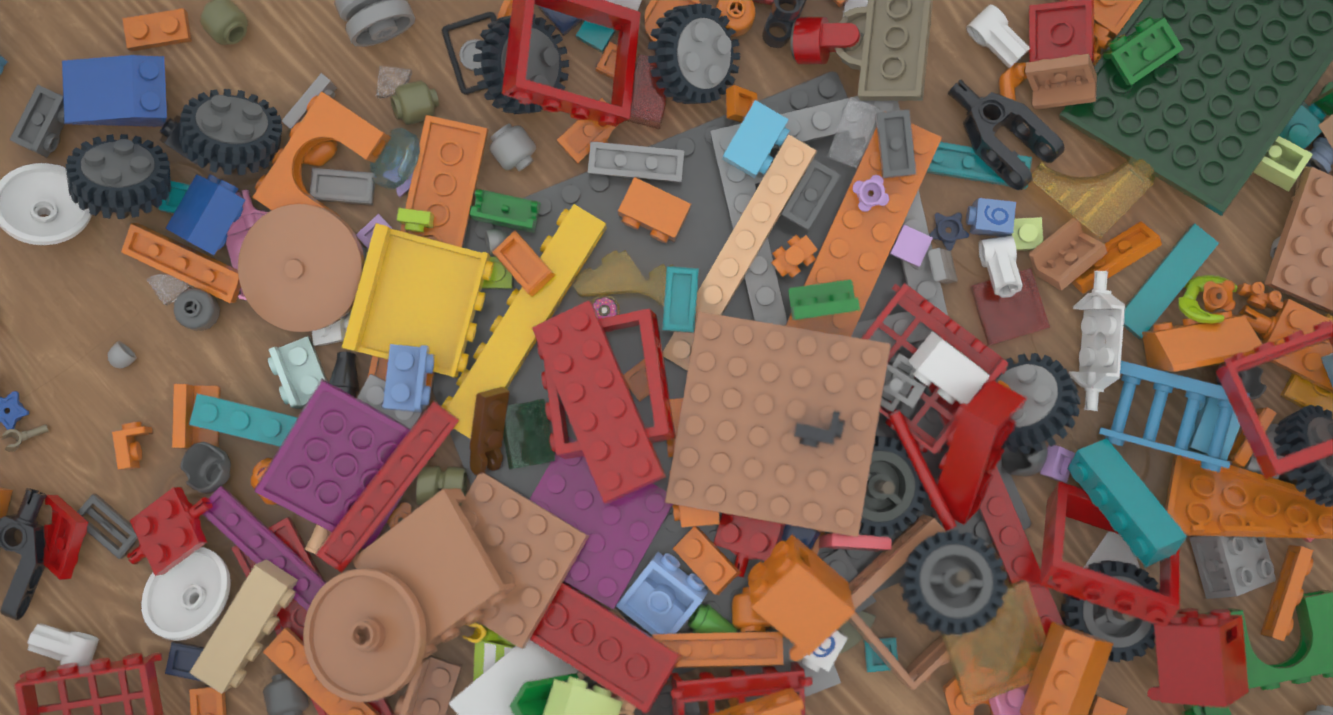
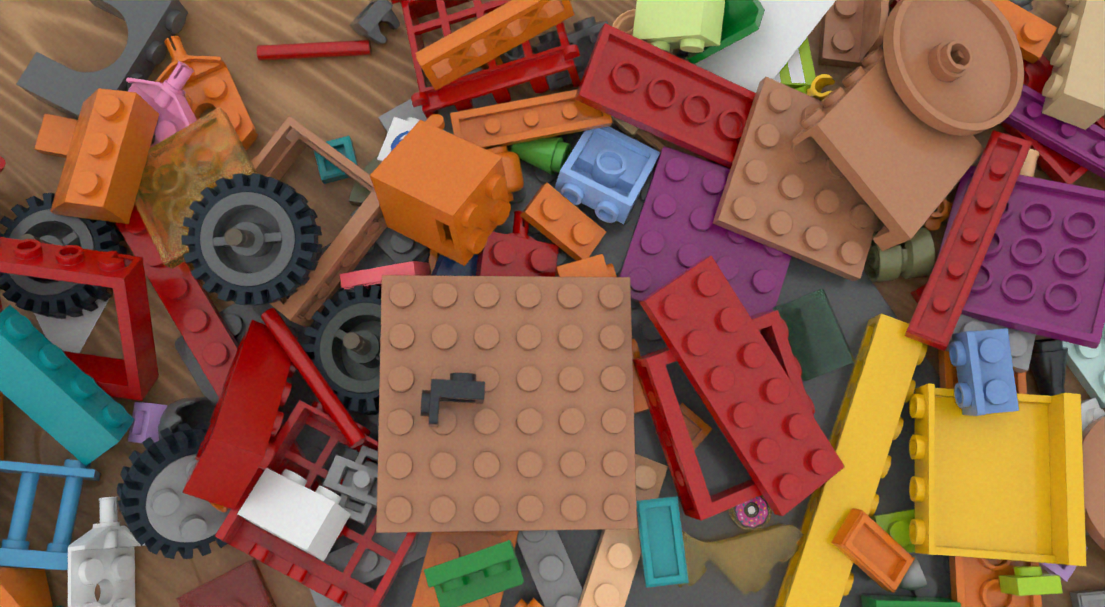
camera: 170 degrees right, 5 degrees down
(488, 430) = (864, 331): reddish brown hinge -> none

